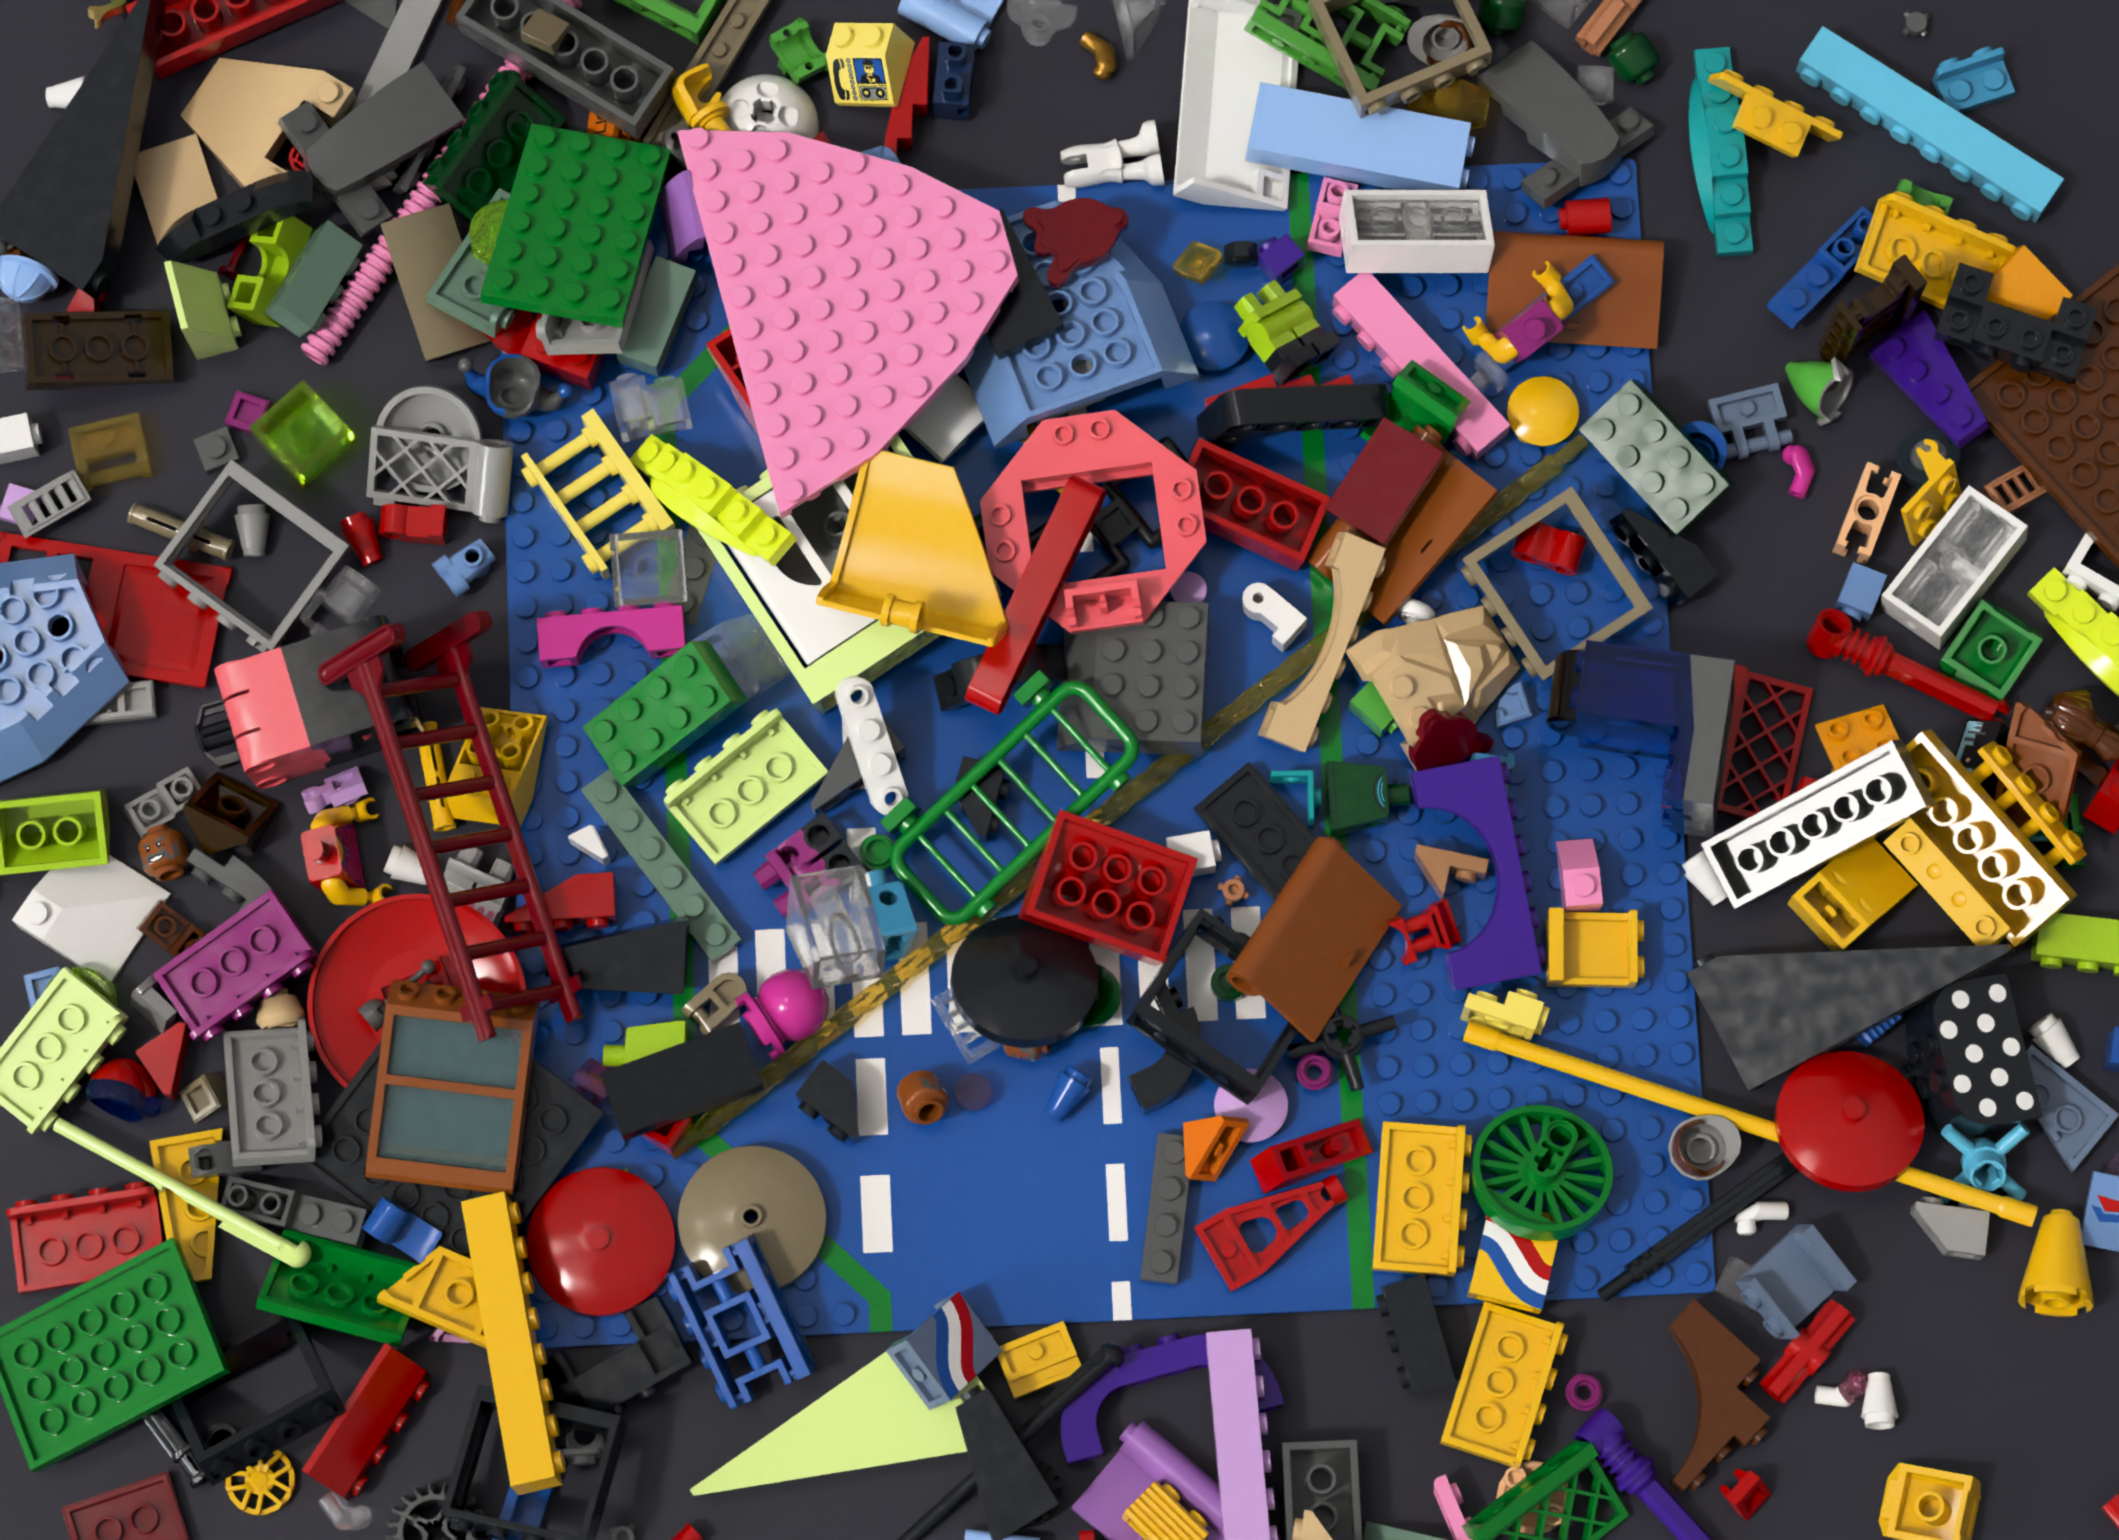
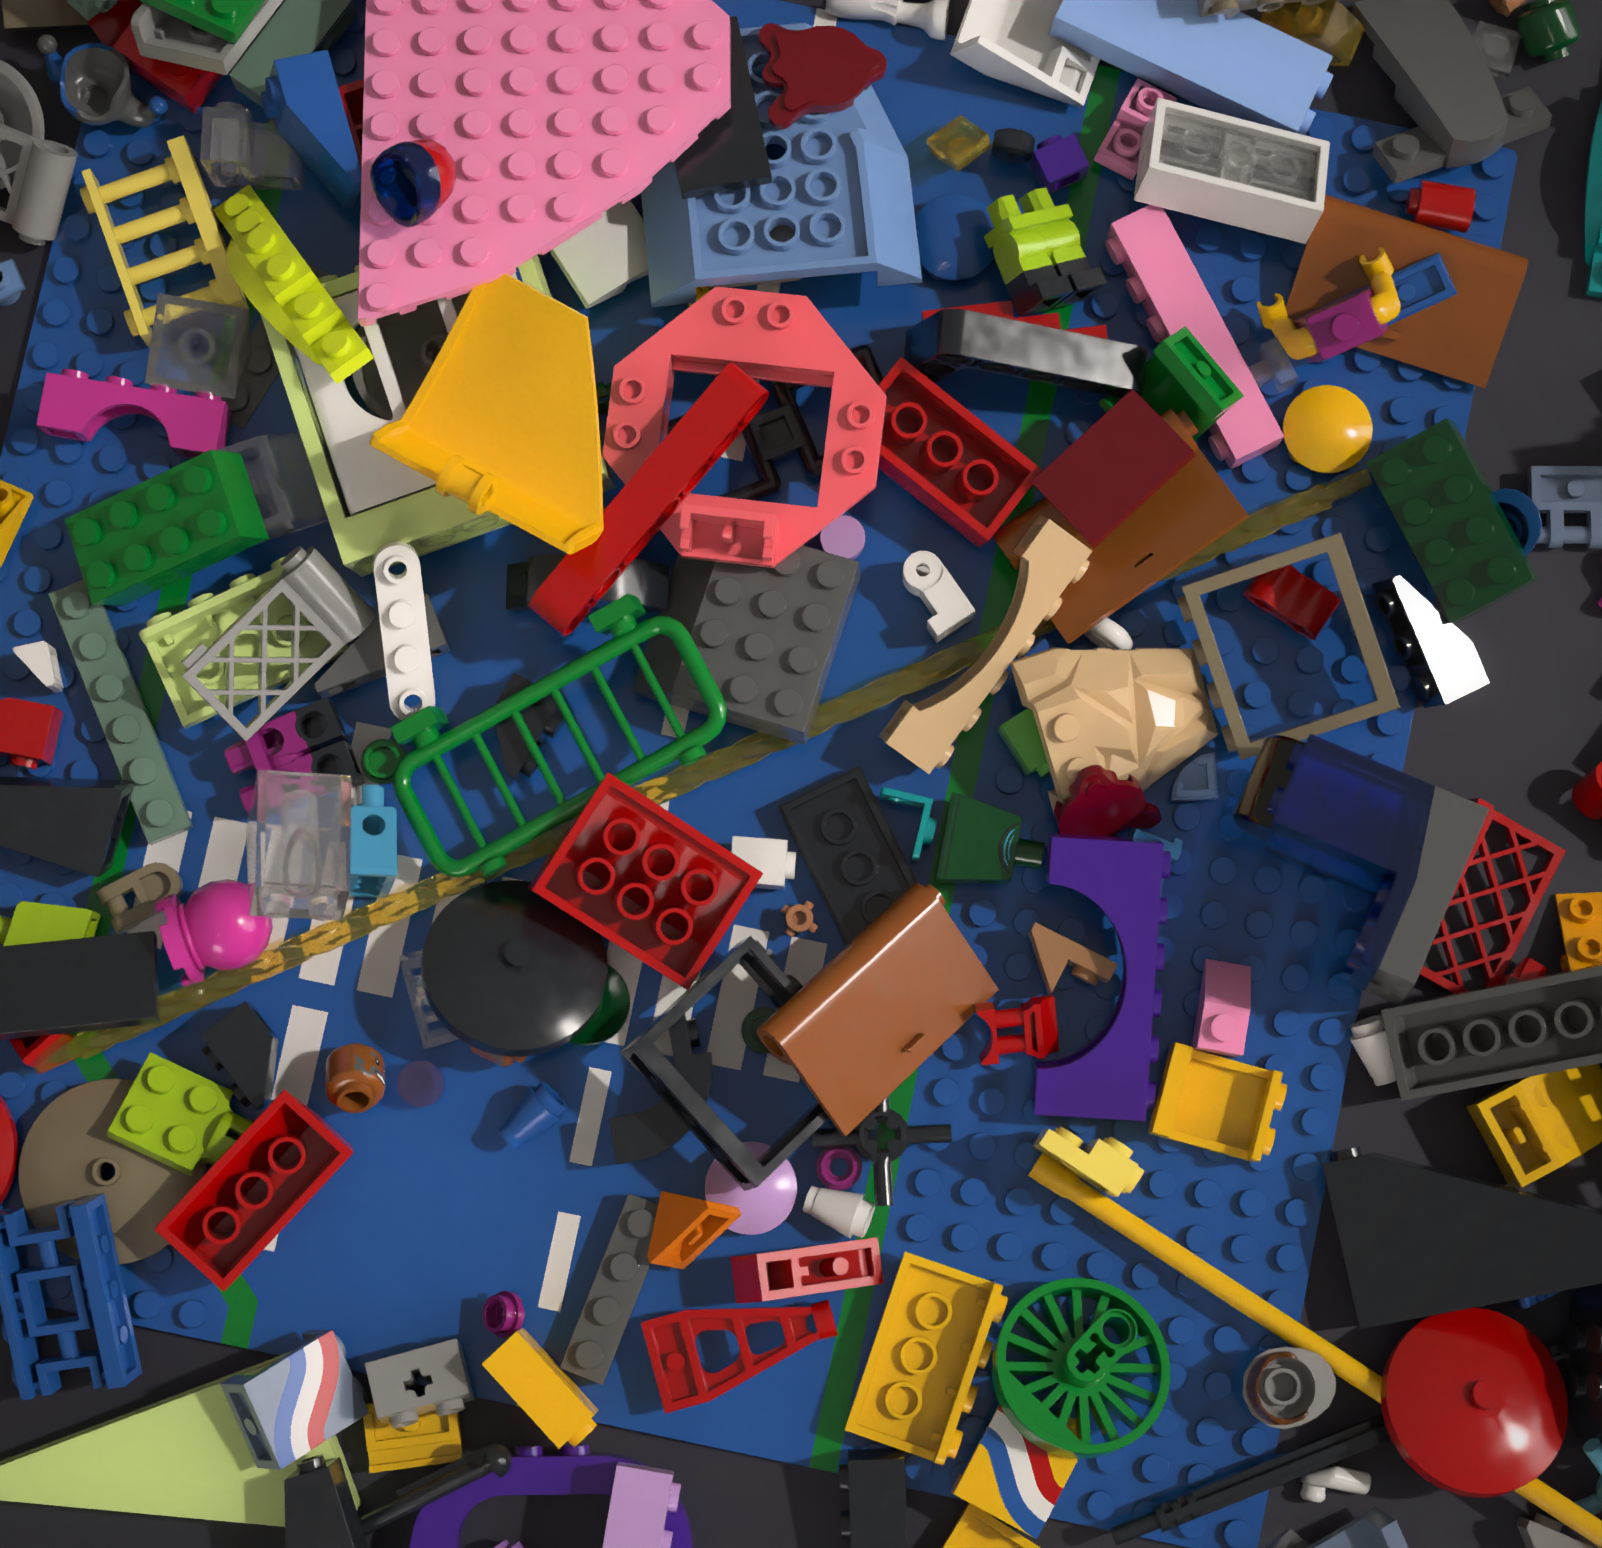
camera: 10 degrees right, 5 degrees up
(698, 373) = (313, 121): none -> blue slope
(795, 397) = (413, 180): none -> clear blue piece
(796, 735) = (321, 599): none -> light grey piece
(798, 1163) = (176, 1117): none -> lime plate
(870, 1199) = (254, 1189): none -> red slope
(1047, 1300) = (395, 1374): none -> light grey brick
(1086, 1249) = (503, 1314): none -> magenta plate
(1132, 1293) = (542, 1389): none -> yellow brick
(1326, 1104) = (840, 1210): none -> white cone

